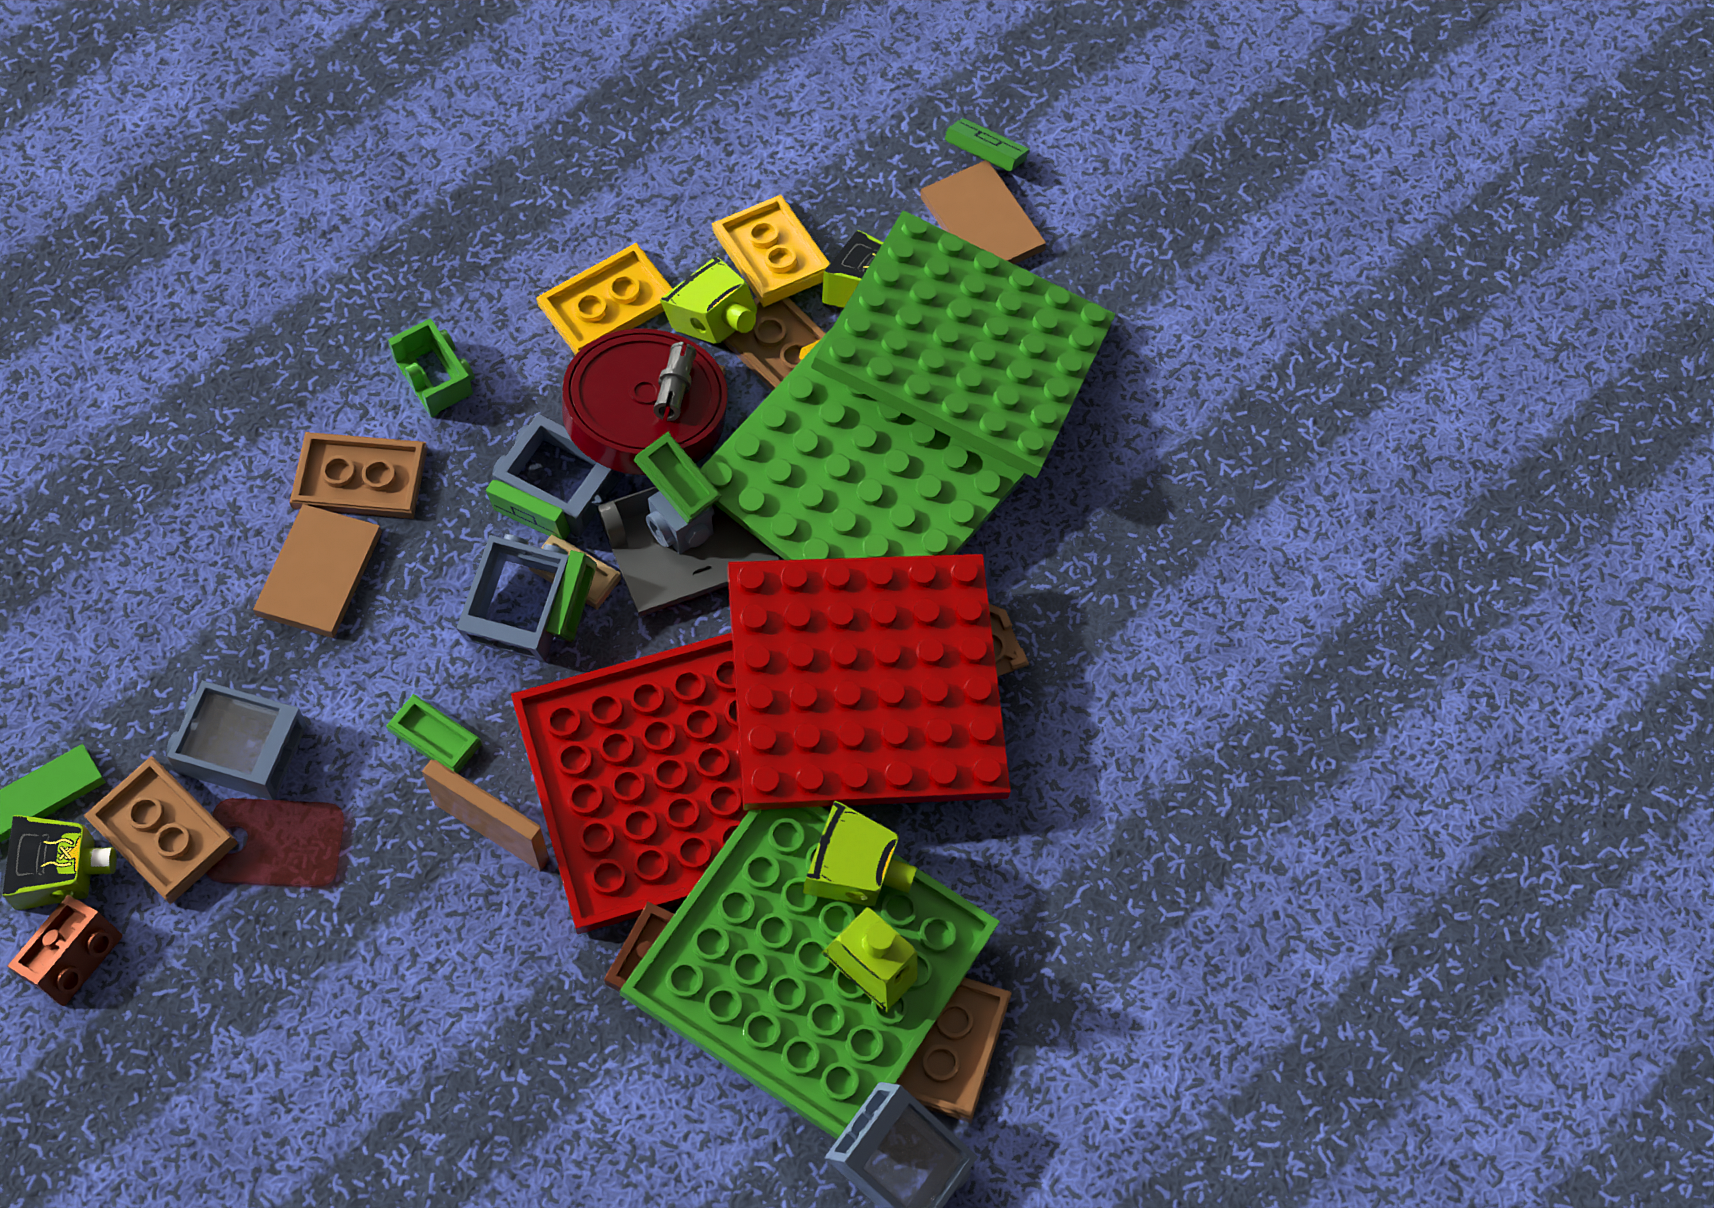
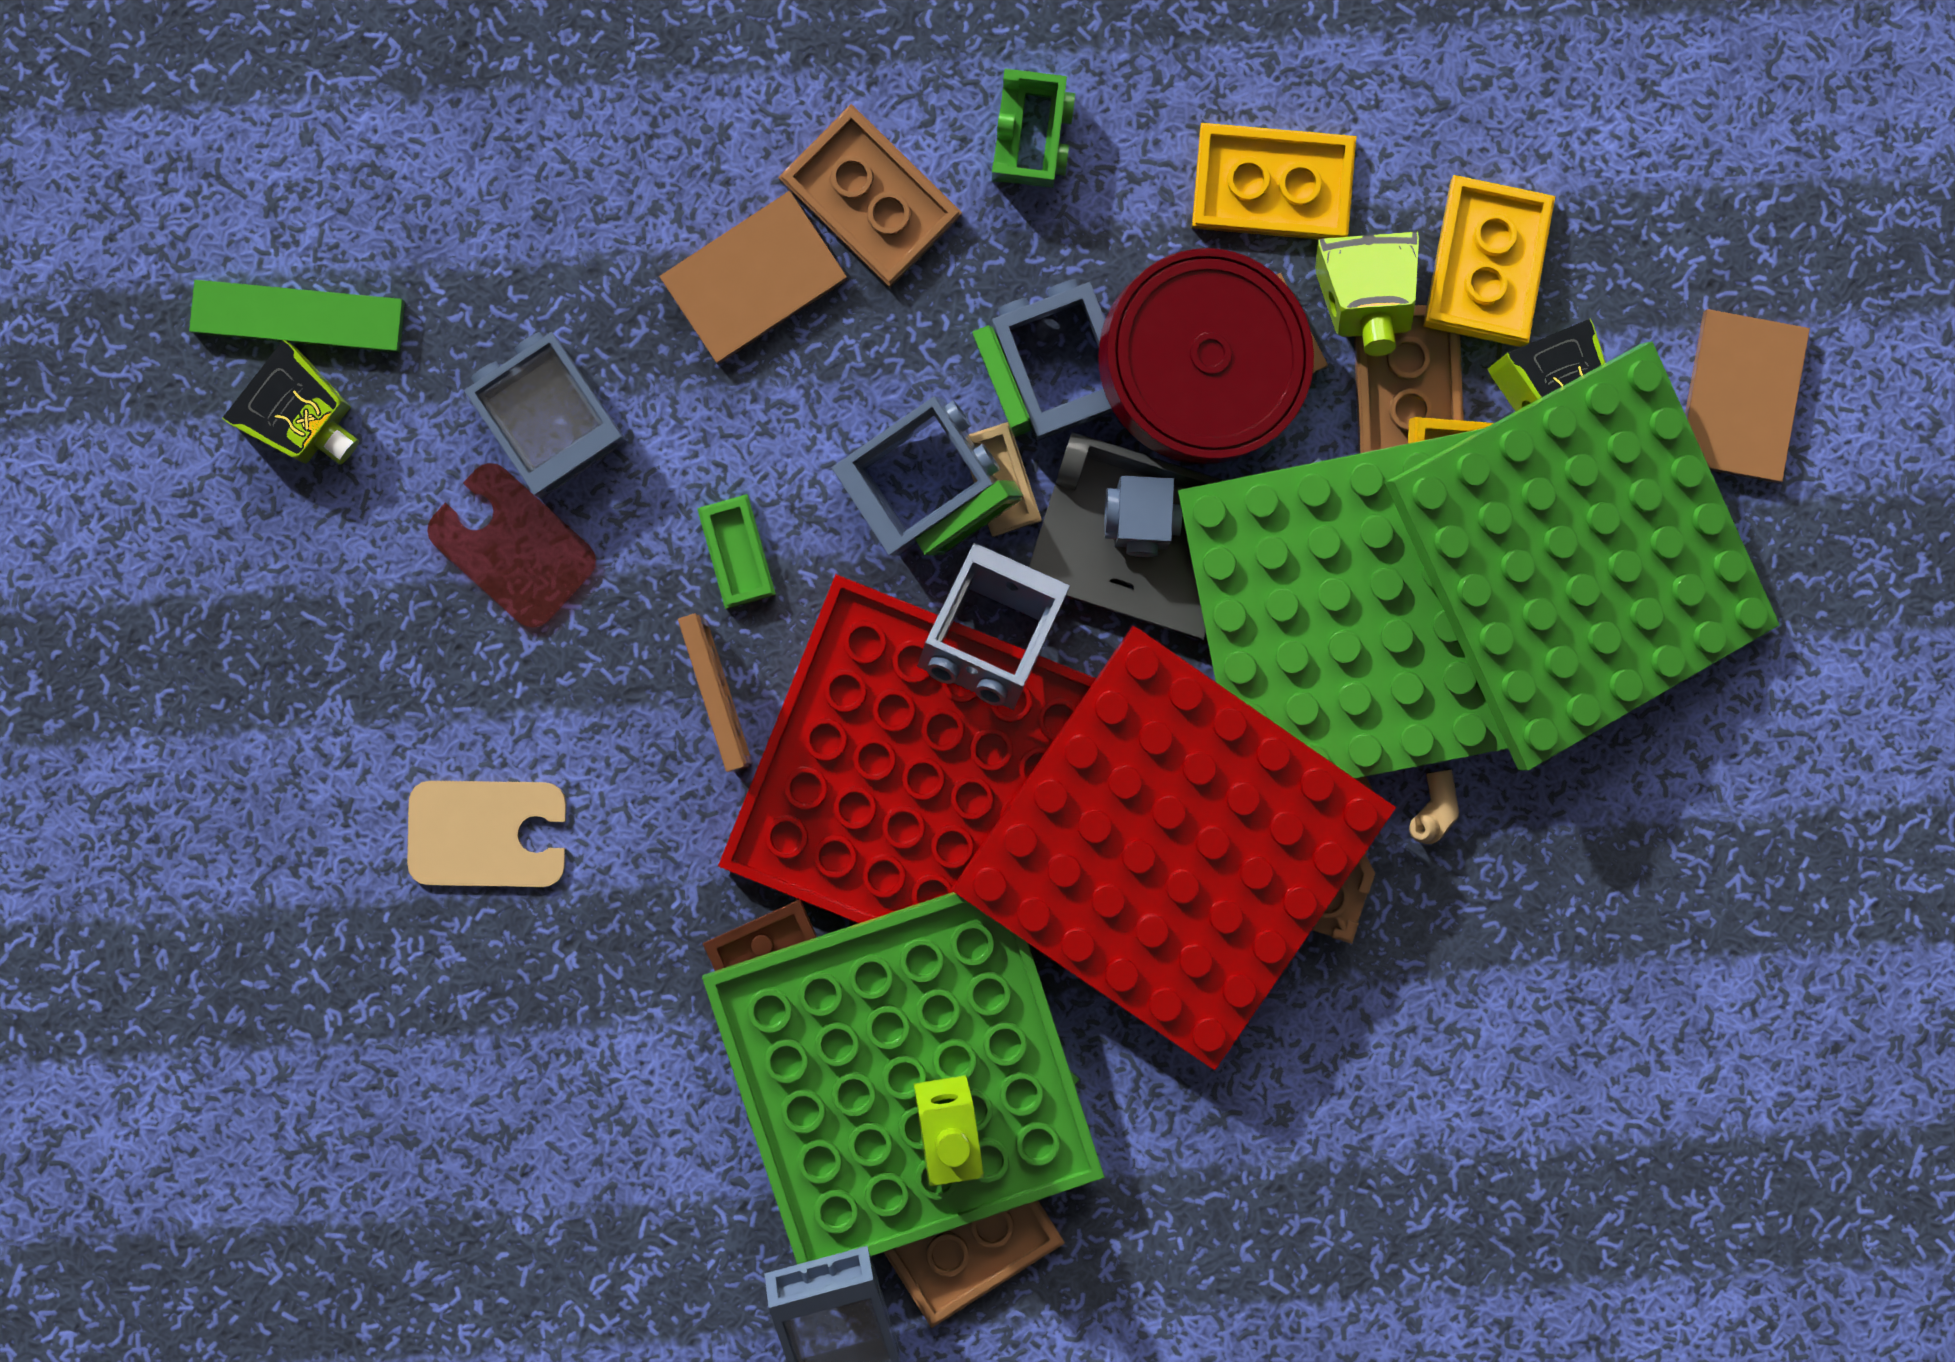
camera: 40 degrees right, 25 degrees up
(66, 950) = (248, 509): copper bracket -> none
(161, 829) = (415, 450): medium nougat tile -> none
(386, 1043) = (471, 833): none -> tan piece
(653, 614) = (1011, 586): none -> sand blue window
(675, 381) = (1246, 371): dark grey pin -> none
(677, 477) = (1161, 486): bright green tile -> none
(855, 860) = (1011, 1028): lime torso -> none
(986, 144) = (1825, 309): bright green tile -> none
(1014, 555) = (1439, 812): none -> tan arm

